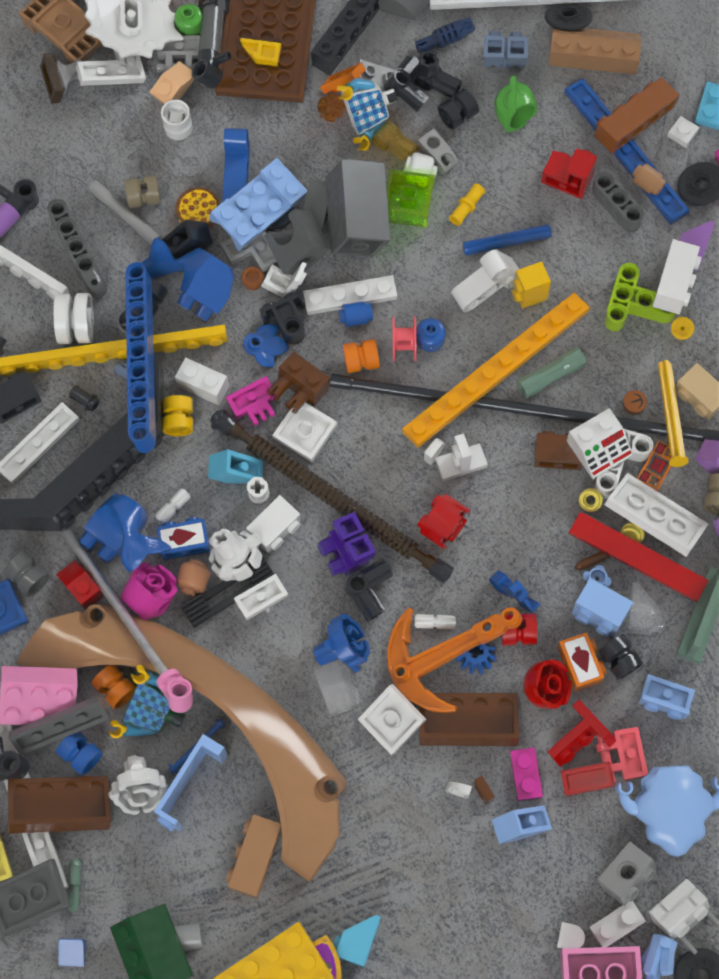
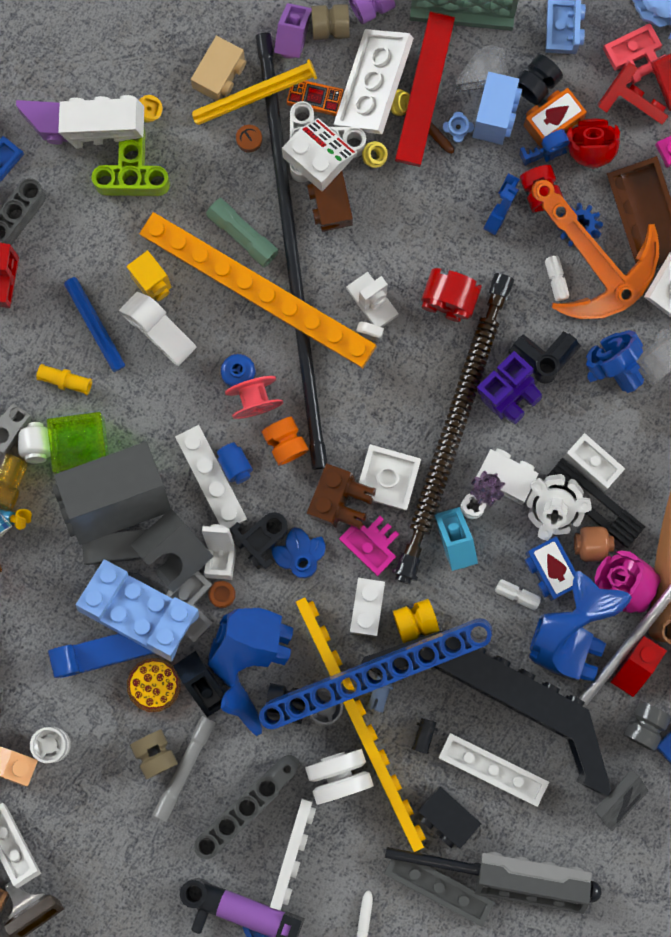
camera: 110 degrees left, 10 degrees up
(258, 496) = (494, 485): none -> clear purple gear
(554, 645) = (553, 146): none -> blue piece

